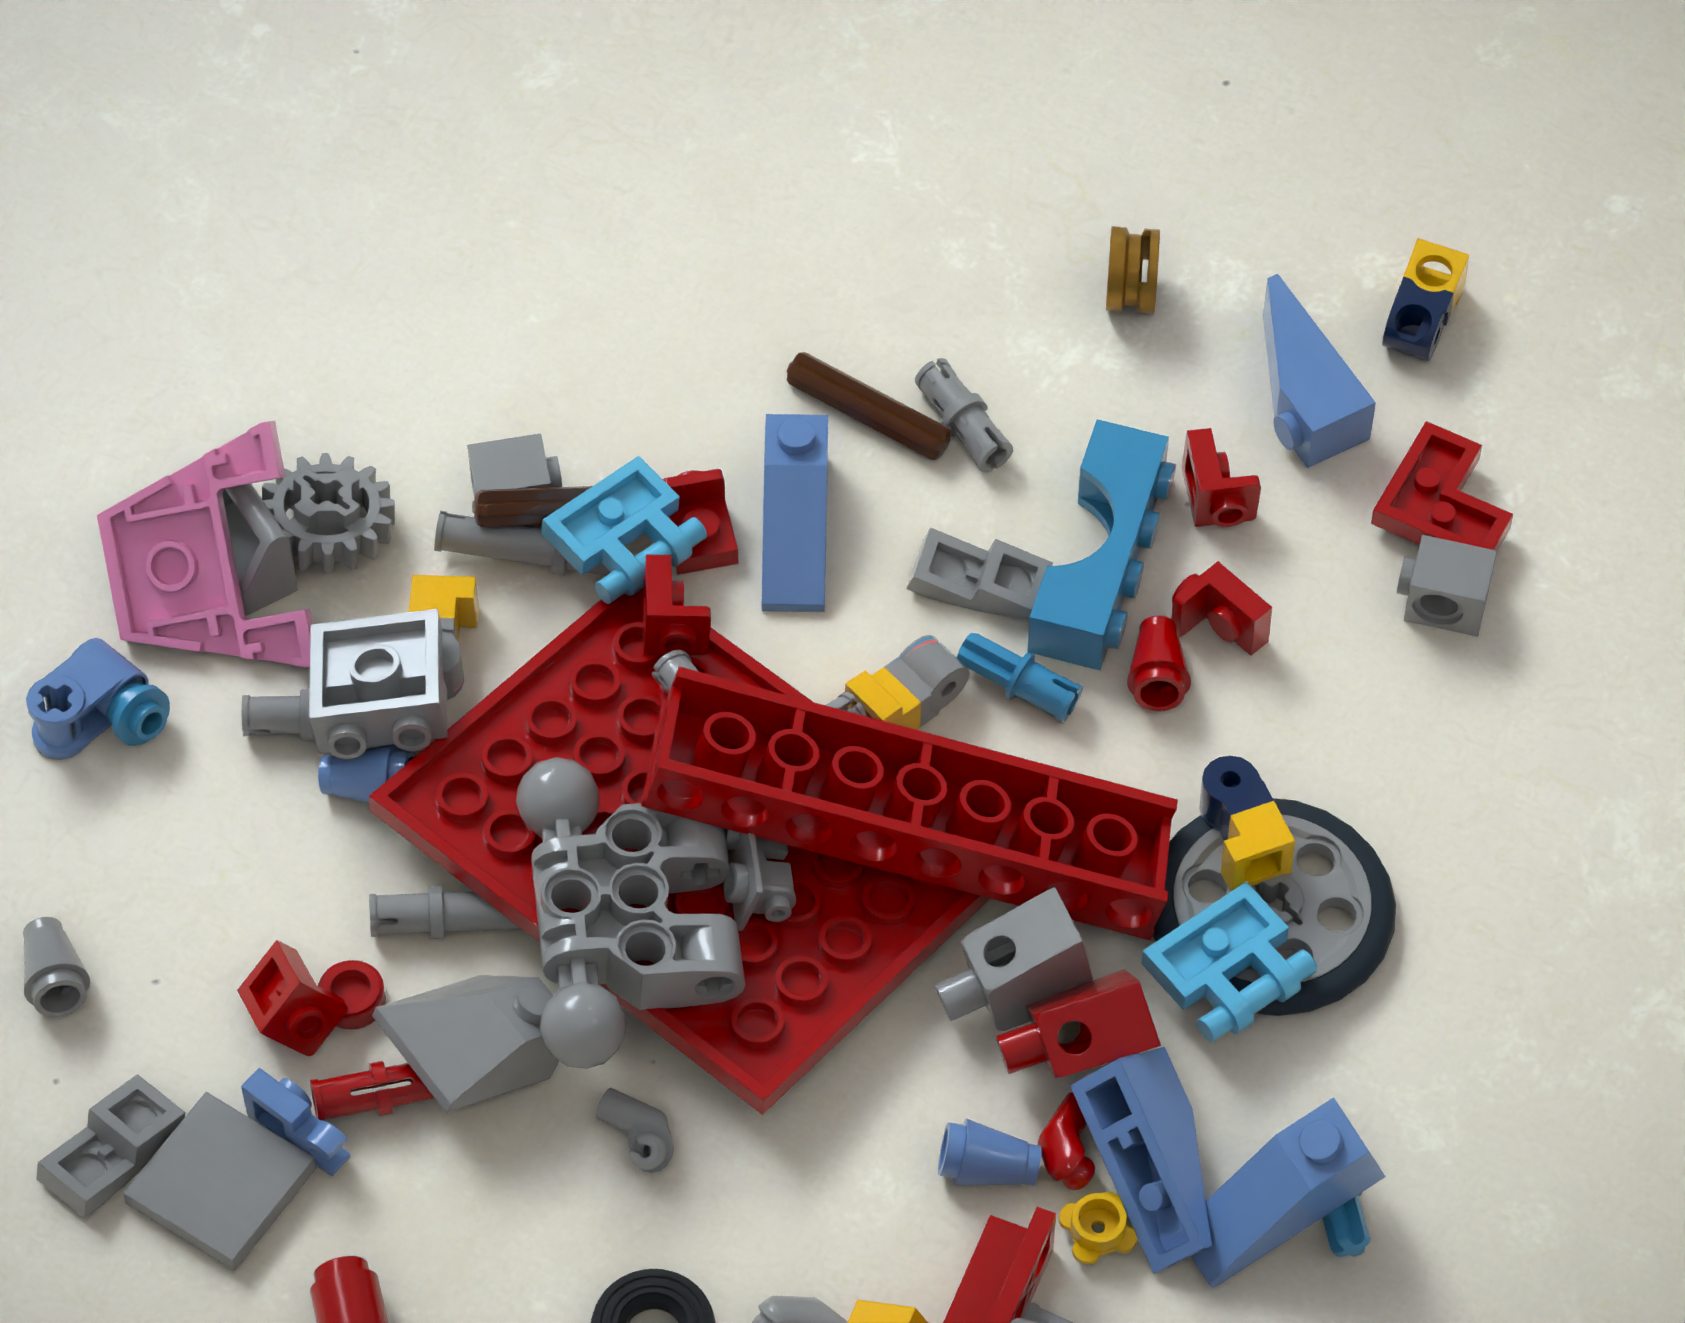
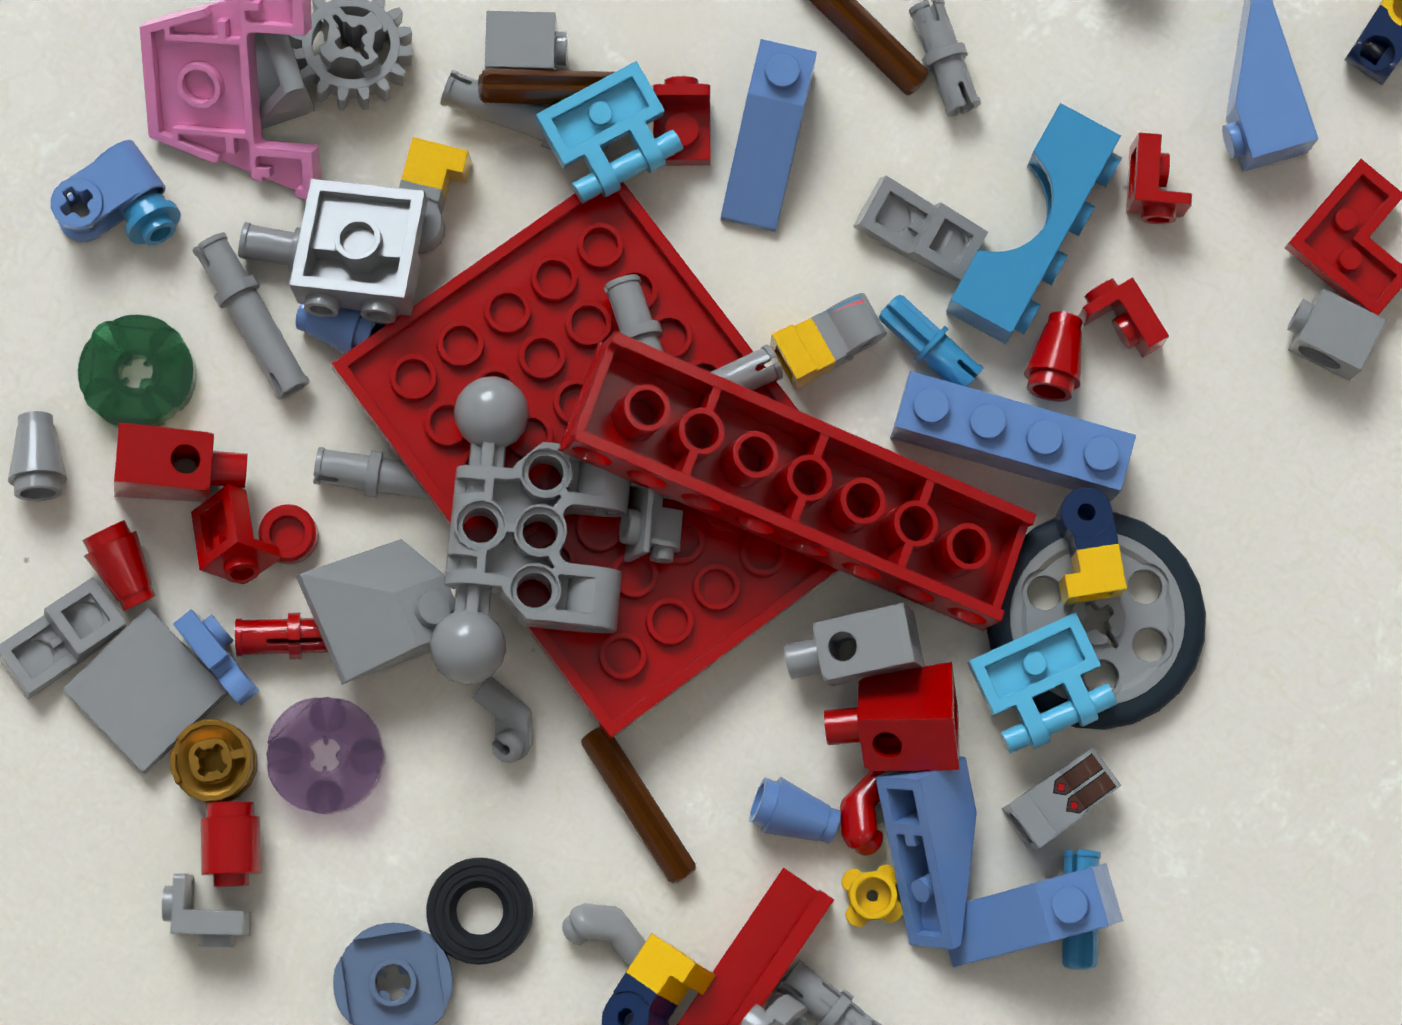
camera: 10 degrees right, 25 degrees up
(145, 834) = (116, 346): none -> clear green plate
(165, 1052) = (120, 564): none -> red cone
(204, 934) = (147, 458): none -> red torso
(250, 767) = (240, 297): none -> light grey pin
(308, 1226) = (213, 761): none -> pearl gold wheel
(447, 1239) = (359, 755): none -> clear purple plate
(666, 620) = (629, 218): red bracket -> none
(810, 1186) = (639, 805): none -> reddish brown axle
(1129, 735) = (1012, 435): none -> medium blue brick
(1281, 1084) = (1061, 799): none -> light grey leg

